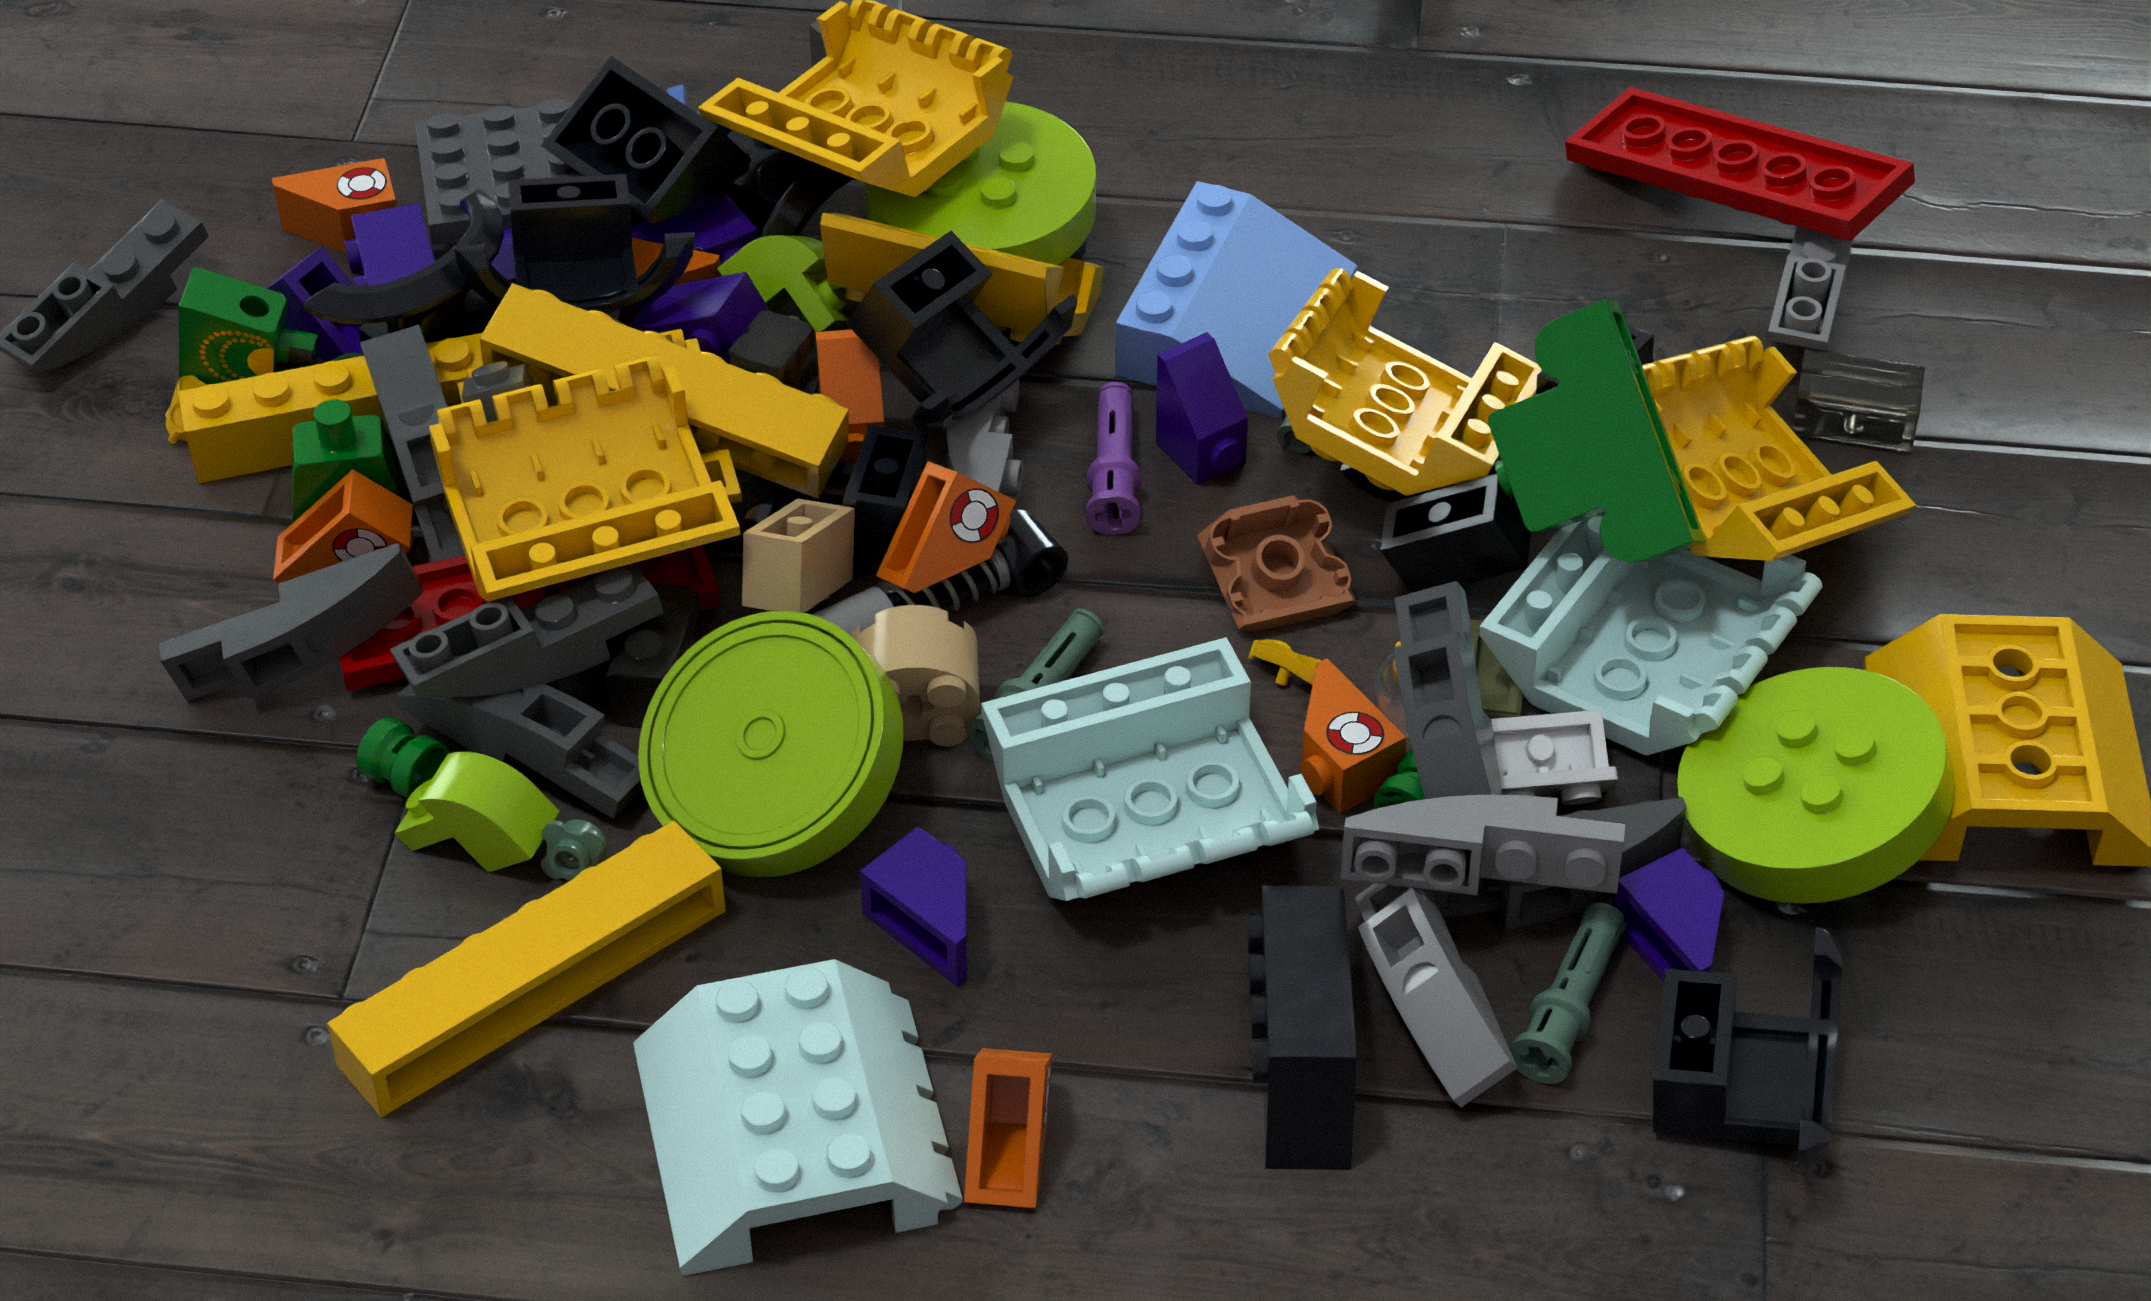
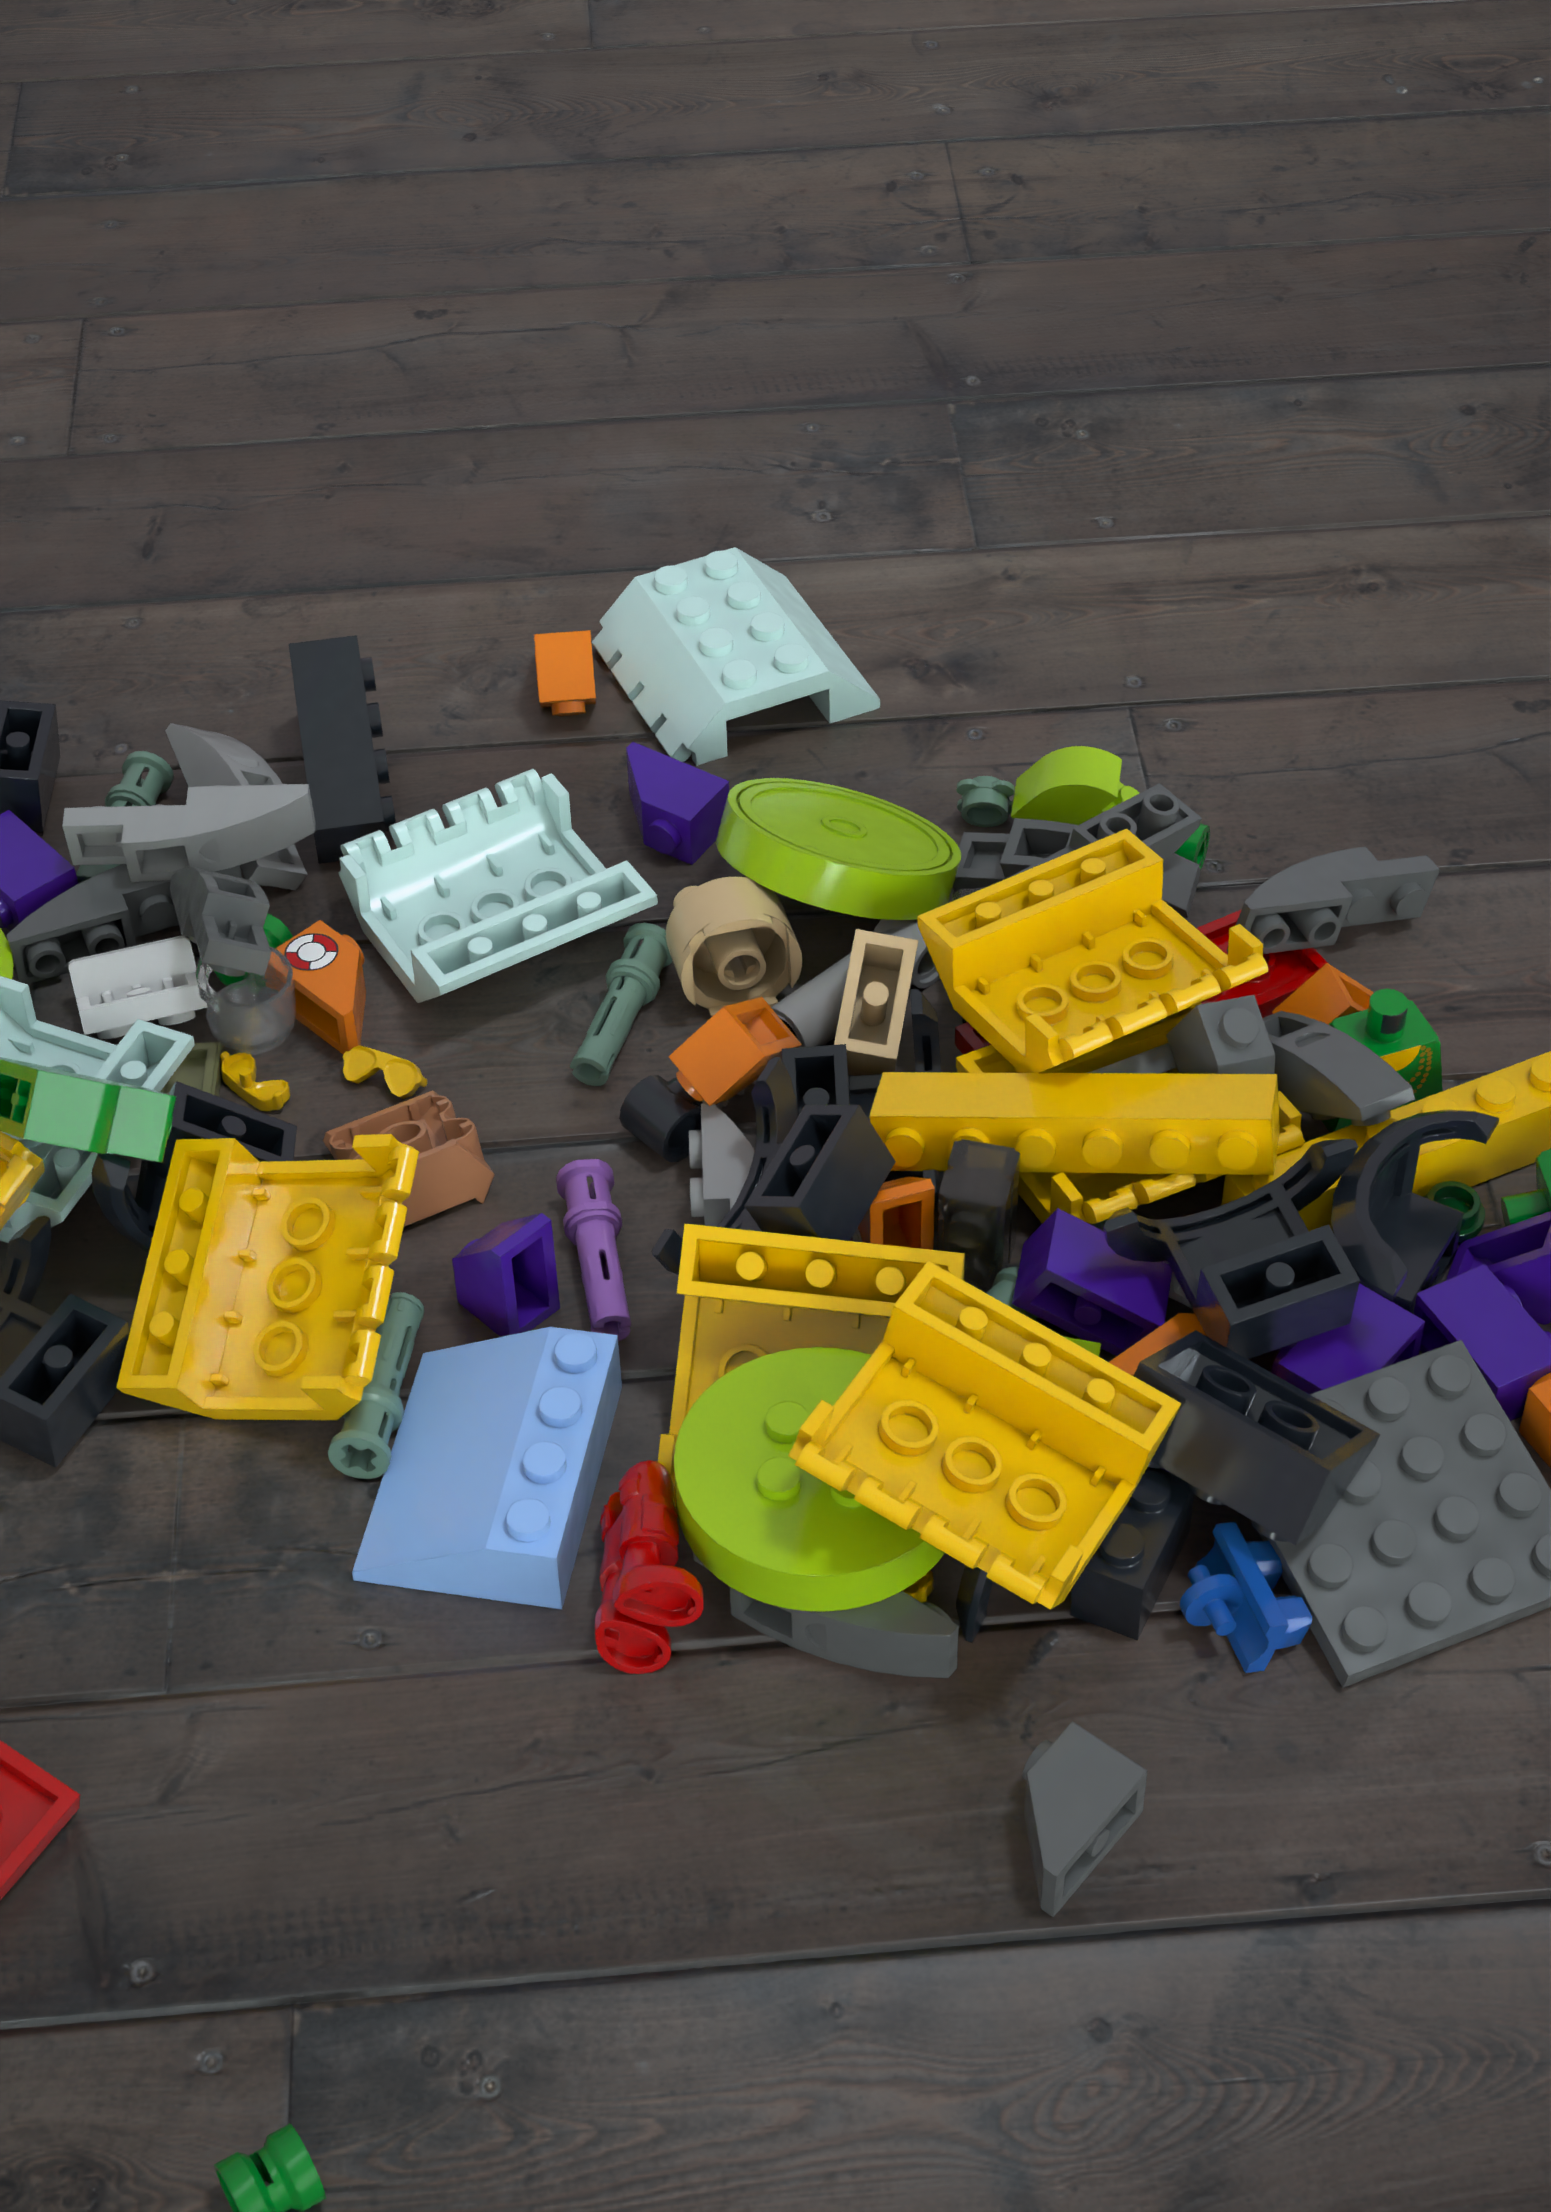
camera: 170 degrees right, 0 degrees up
(526, 968) = (984, 709): yellow brick -> none
(1131, 198) = (639, 1573): none -> red piece

